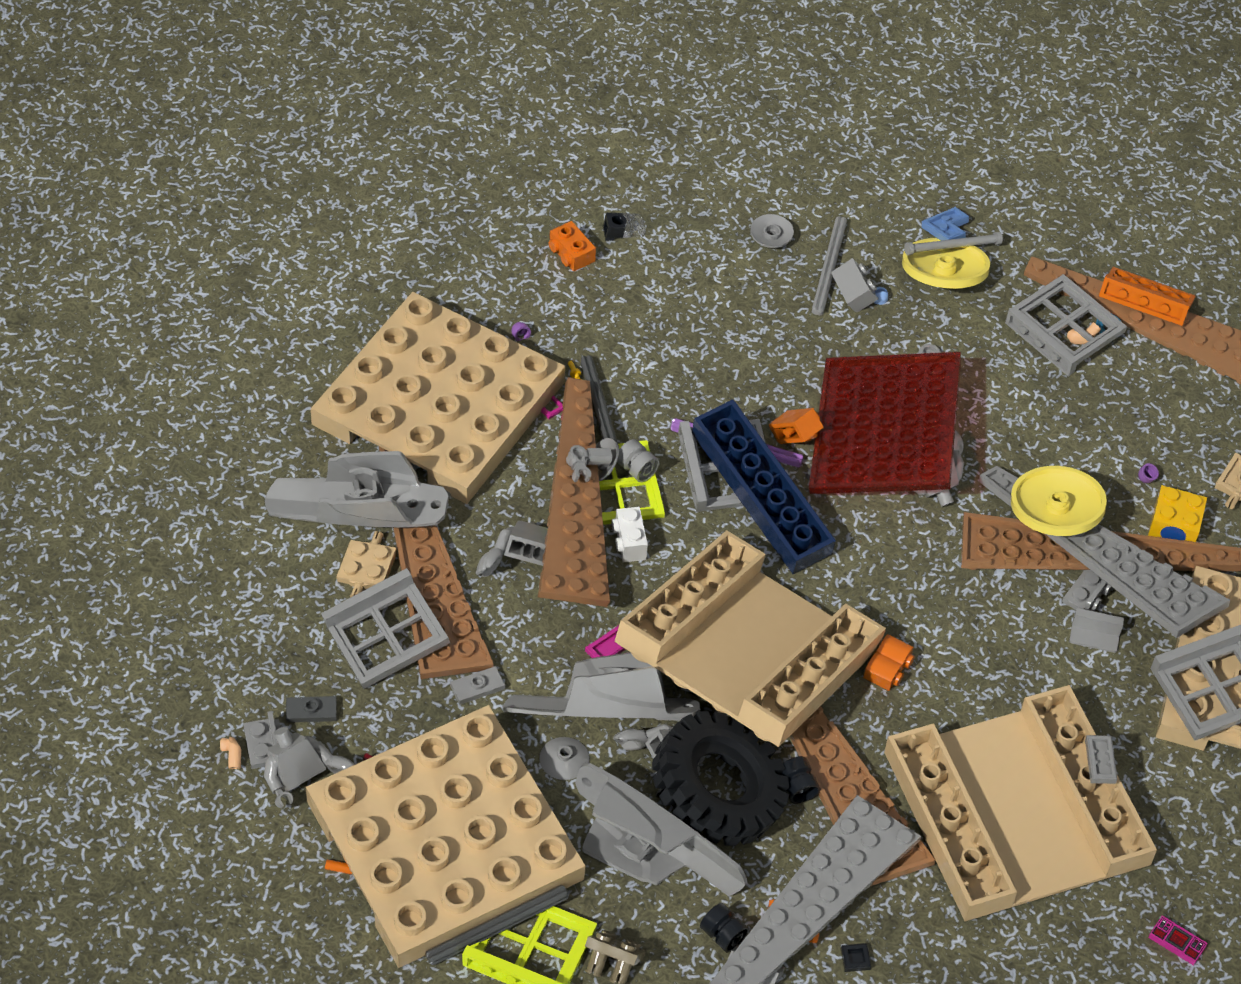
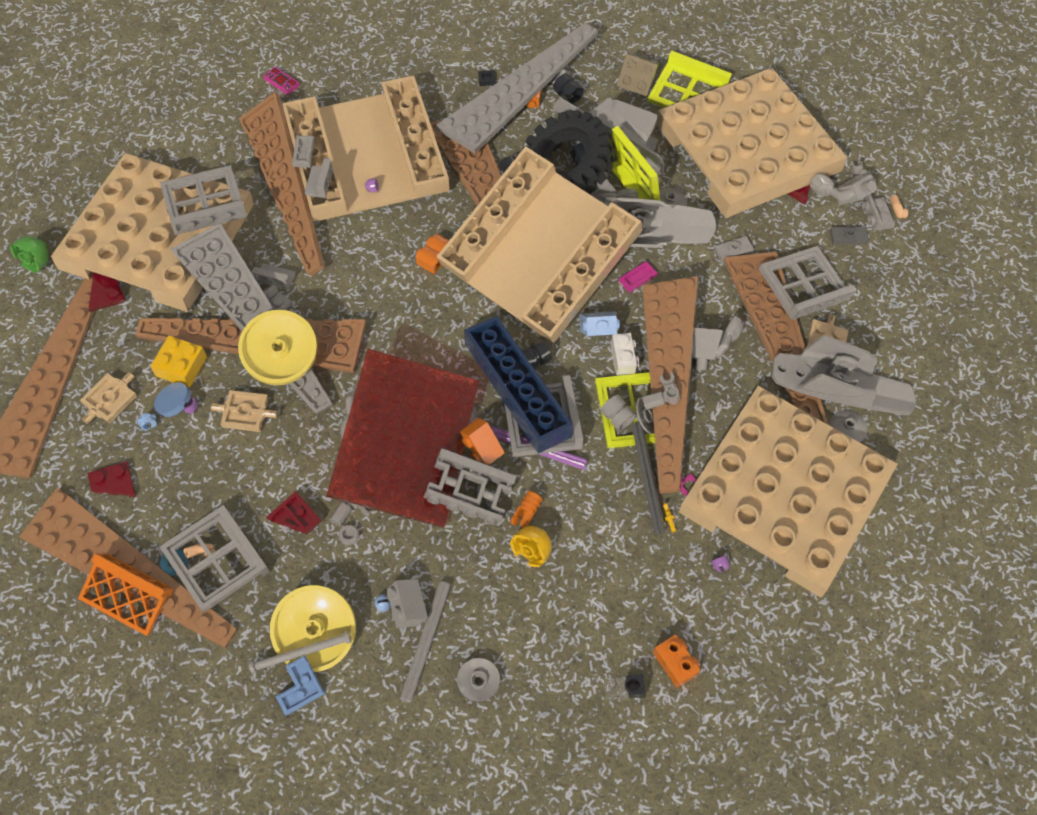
camera: 175 degrees left, 10 degrees up
(613, 759) = (632, 178): none -> neon yellow window
(660, 562) = (599, 323): none -> light blue torso
(728, 336) = (530, 543): none -> yellow cylinder
(735, 377) = (527, 507): none -> orange hinge
(747, 528) = (537, 353): none -> black wheel
(804, 396) = (474, 472): none -> light grey fence
(991, 368) = (295, 514): none -> dark red wing
(994, 741) = (372, 185): none -> medium lavender hinge
(1067, 719) = (319, 179): none -> light grey panel
(1088, 461) = (244, 411): none -> tan plate
(1158, 812) = (274, 149): none -> medium nougat wing
(1169, 472) = (172, 399): none -> medium blue tile
(1190, 457) = (145, 419): none -> light blue plate
(1204, 400) = (112, 480): none -> dark red wing

